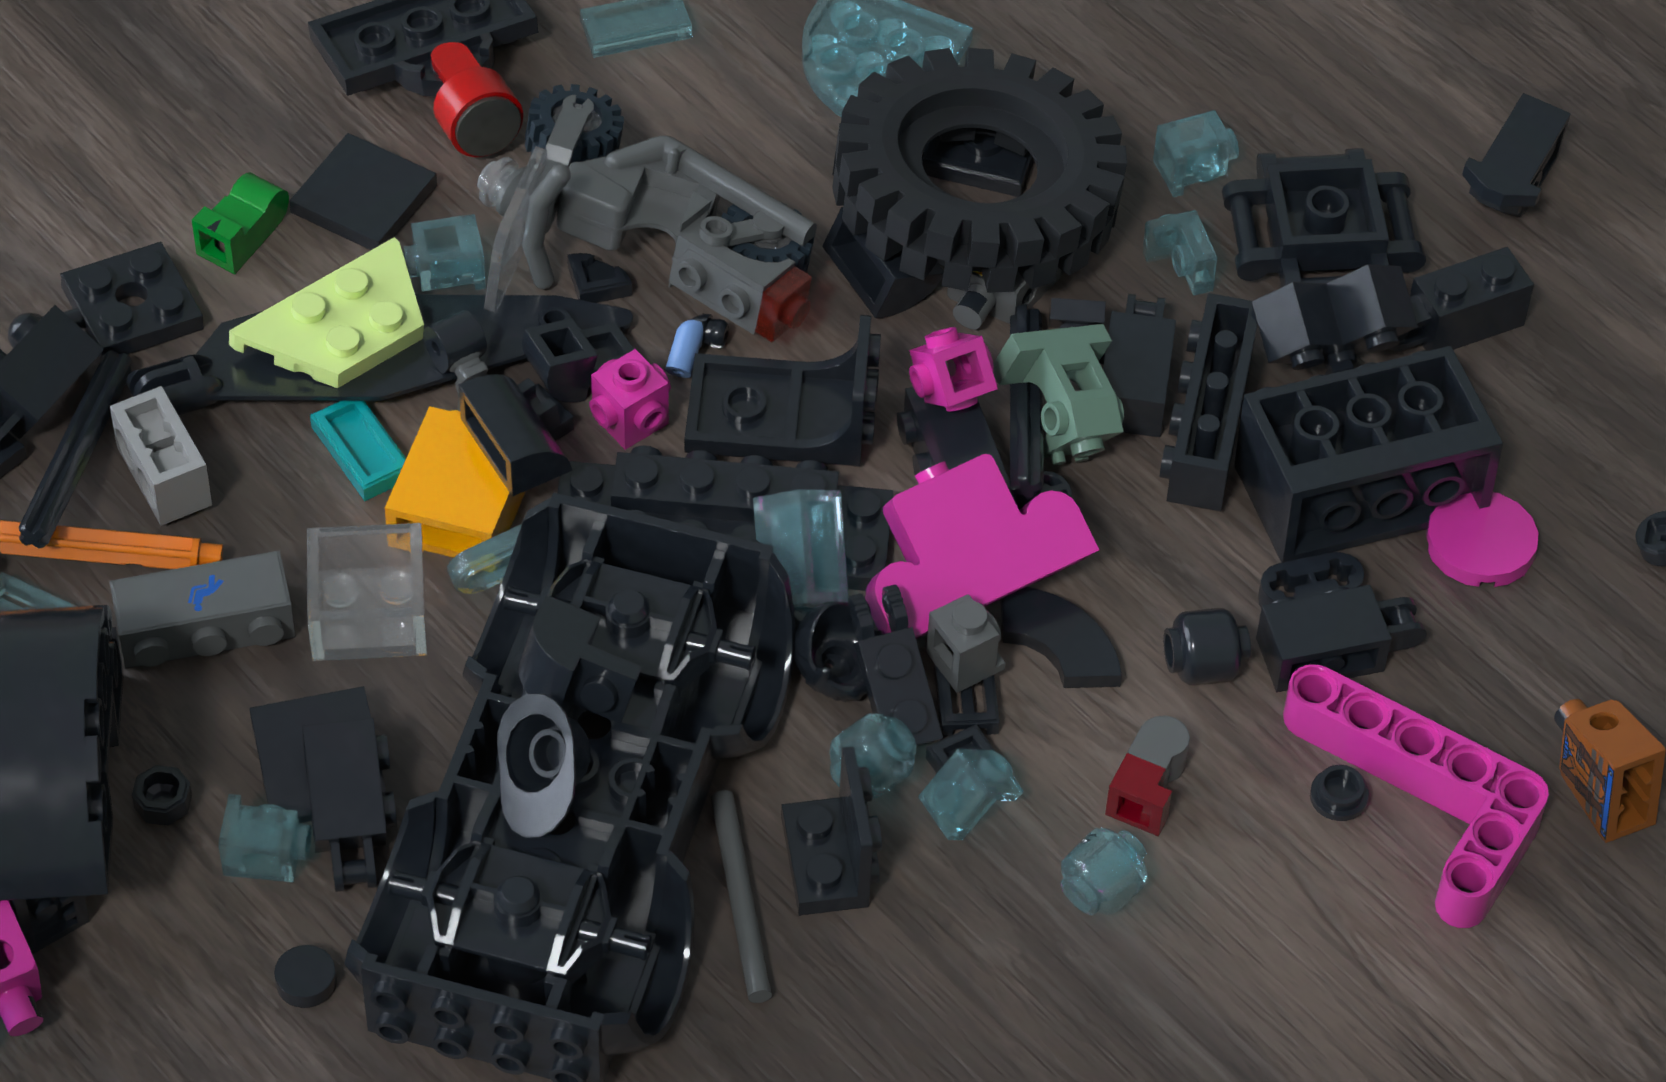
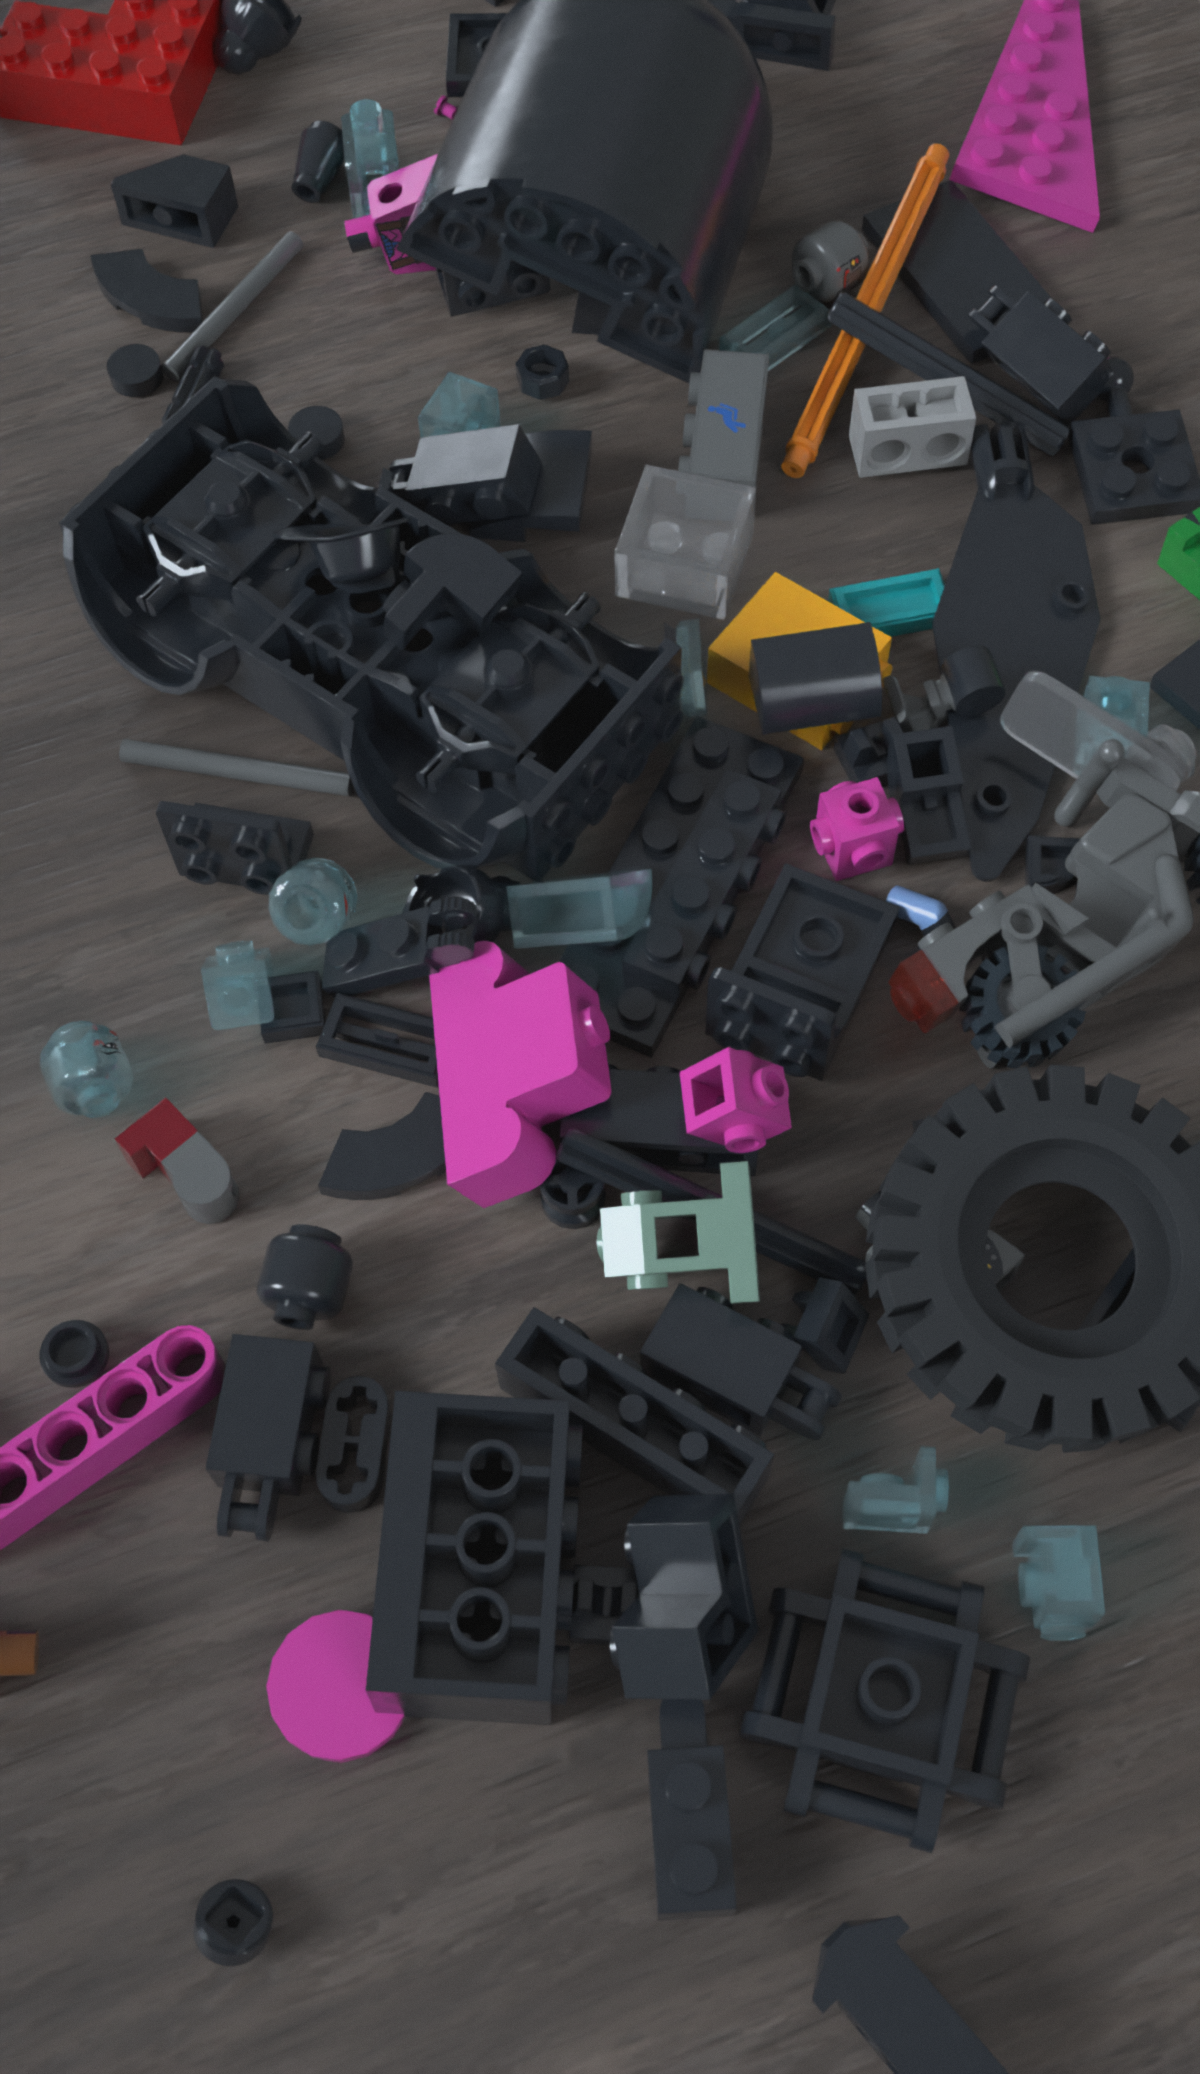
camera: 115 degrees right, 10 degrees up
(341, 320) = (1041, 605): yellowish green wing -> none
(971, 635) = (398, 1021): dark grey brick -> none

